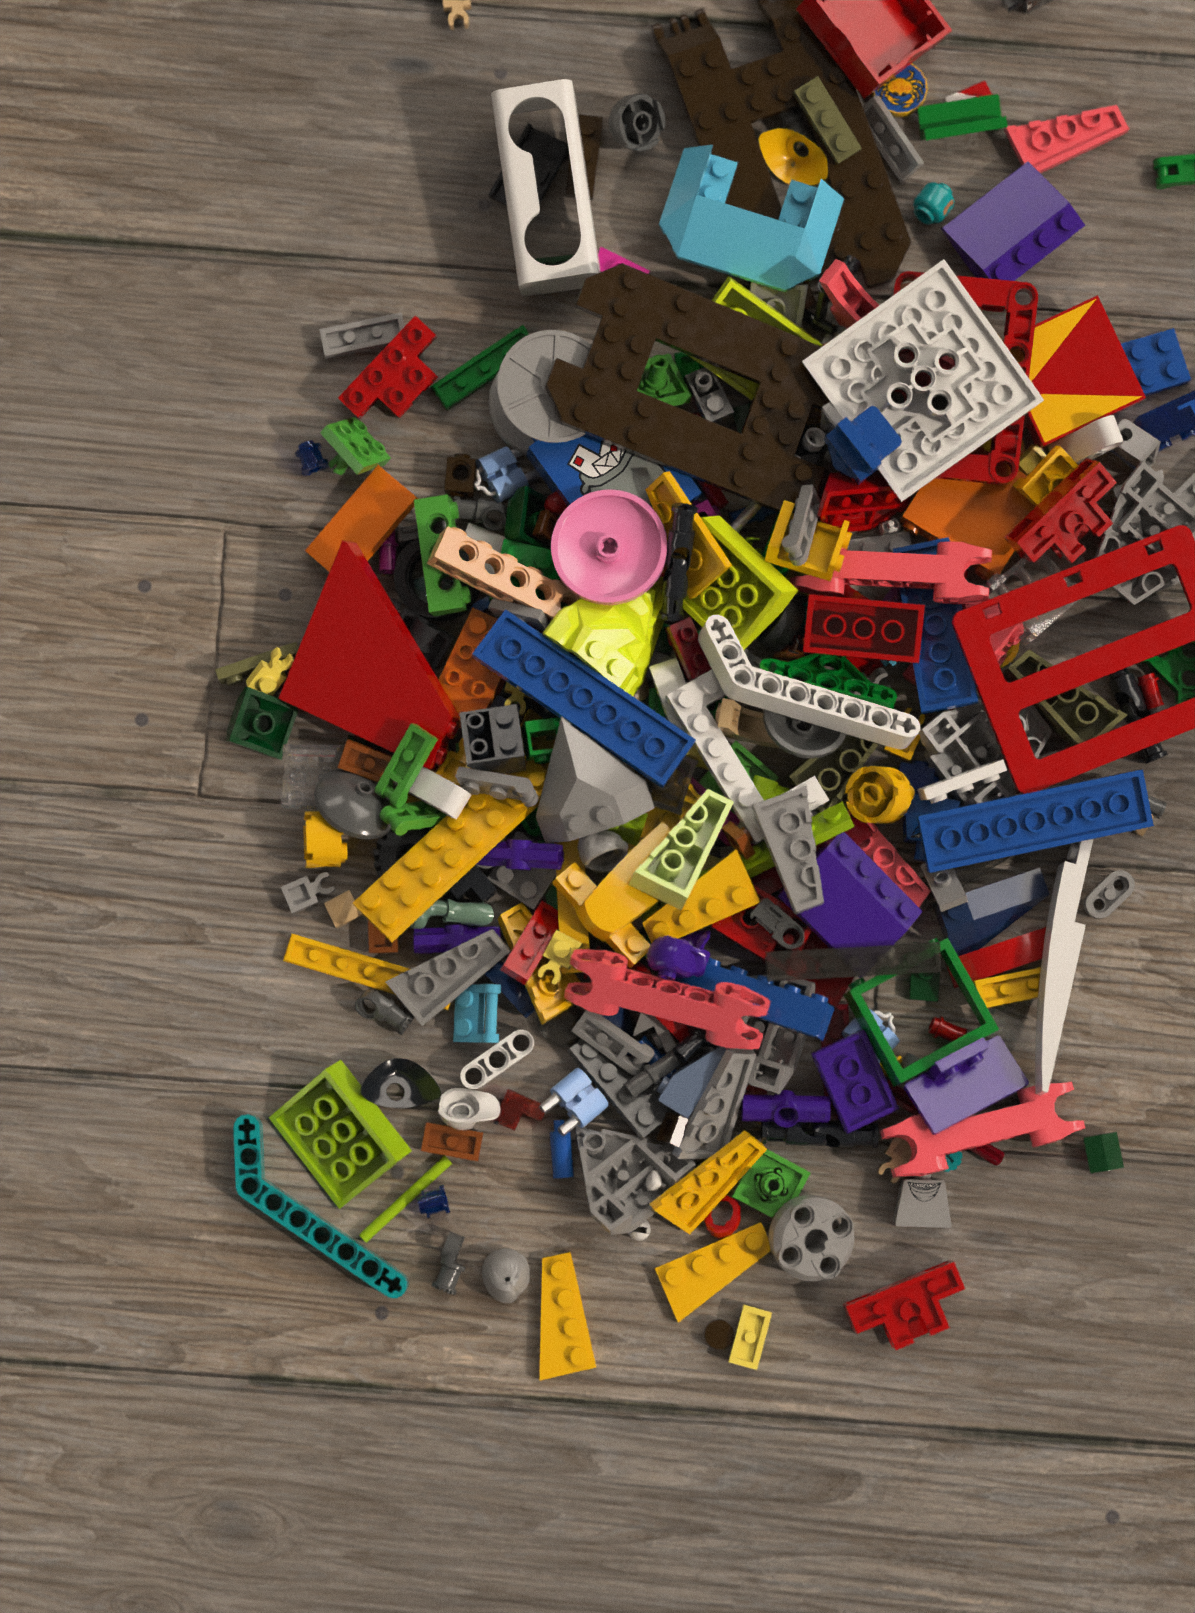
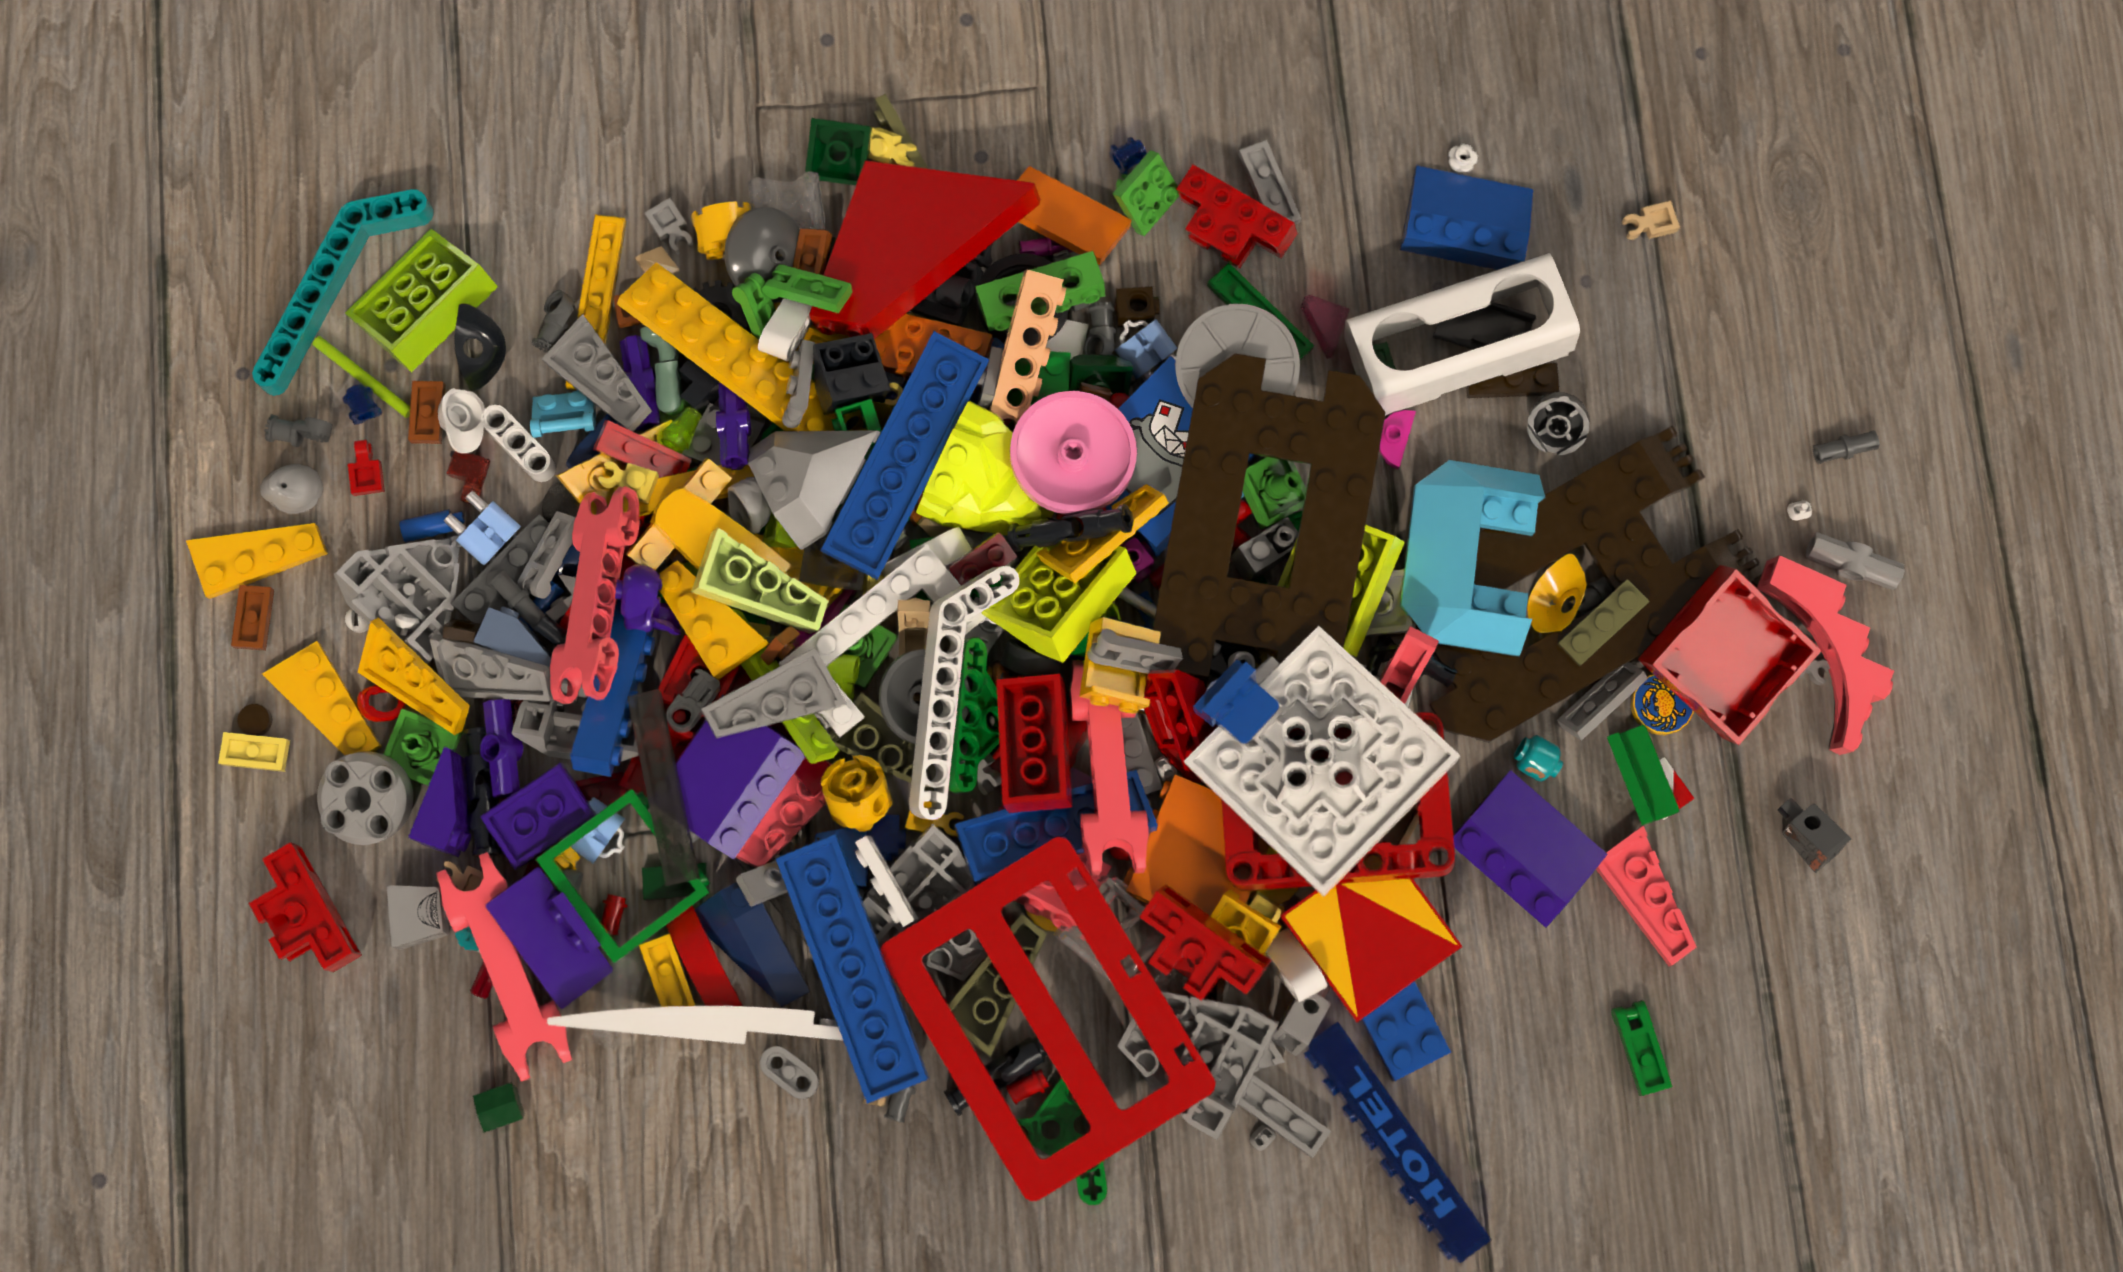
camera: 80 degrees right, 5 degrees down
(365, 164) = (1457, 163): none -> white plate
(425, 163) = (1467, 219): none -> blue slope
(503, 1205) = (365, 474): none -> red plate
(505, 308) = (1325, 321): none -> clear pink slope
(515, 905) = (681, 431): none -> clear neon green cone
(623, 1325) = (252, 617): none -> dark orange plate
(844, 1167) = (444, 812): none -> dark purple slope

